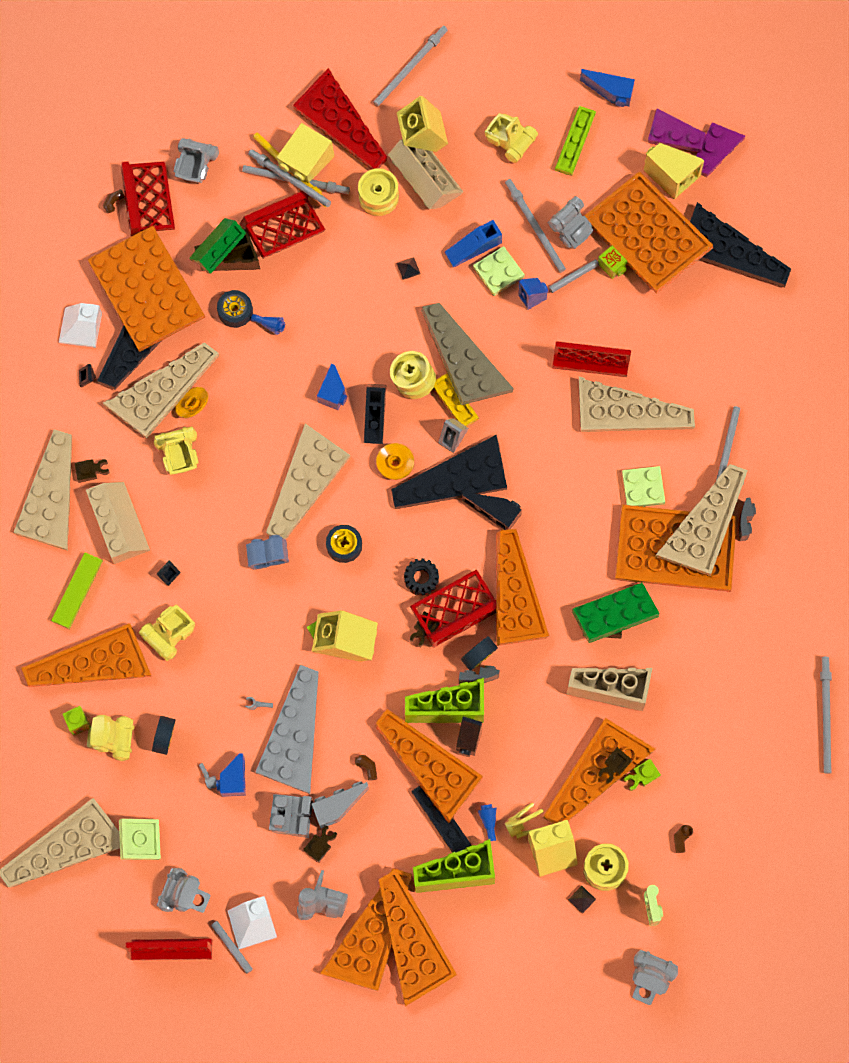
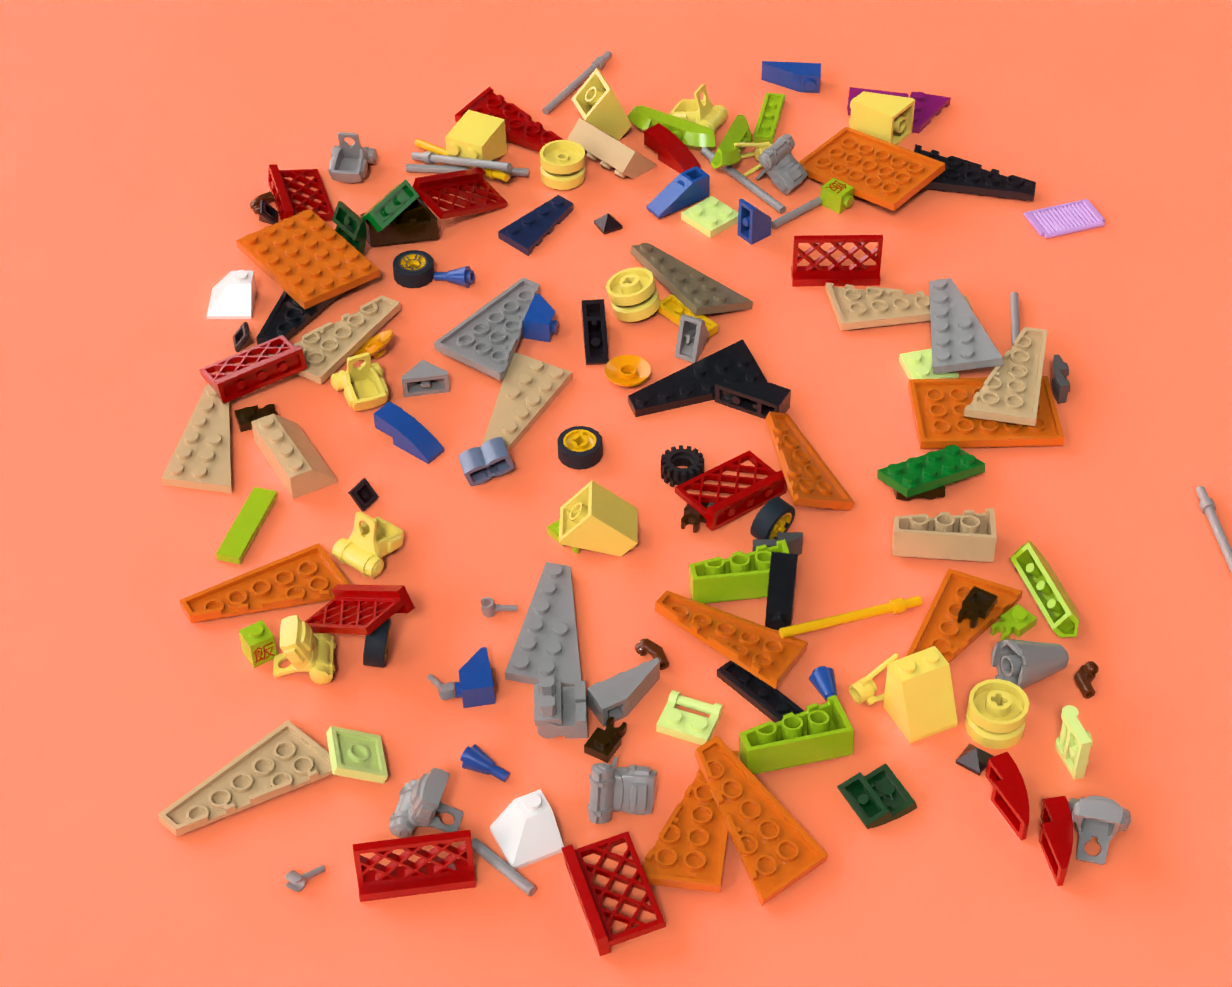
camera: 10 degrees left, 30 degrees down
(90, 940) = (297, 882): none -> light grey hand
(97, 430) = (250, 377): none -> red fence
(118, 218) = (267, 213): none -> slope
(163, 703) = (360, 608): none -> red fence
(183, 262) = (350, 226): none -> dark green slope
(209, 510) = (407, 433): none -> blue slope
(227, 854) = (477, 760): none -> blue cone
(229, 449) = (425, 380): none -> light grey slope
(286, 989) = (592, 904): none -> red fence
(289, 399) = (491, 333): none -> light grey wing
(343, 264) = (532, 227): none -> dark blue wing
(380, 838) = (686, 724): none -> yellowish green plate
(478, 180) = (669, 148): none -> red slope
(488, 153) = (690, 133): none -> lime brick
(504, 925) = (877, 797): none -> dark green slope
(540, 169) = (727, 153): none -> lime brick
(557, 746) = (894, 606): none -> yellow bar
(559, 194) = (760, 147): none -> light yellow plant
(598, 938) = (1009, 792): none -> red slope
(621, 982) = (1057, 836): none -> red slope
(641, 822) = (1027, 661): none -> light grey cone
(671, 467) = (956, 332): none -> light grey wing
(673, 750) = (1046, 590): none -> lime brick
(807, 313) = (1065, 218): none -> lavender window

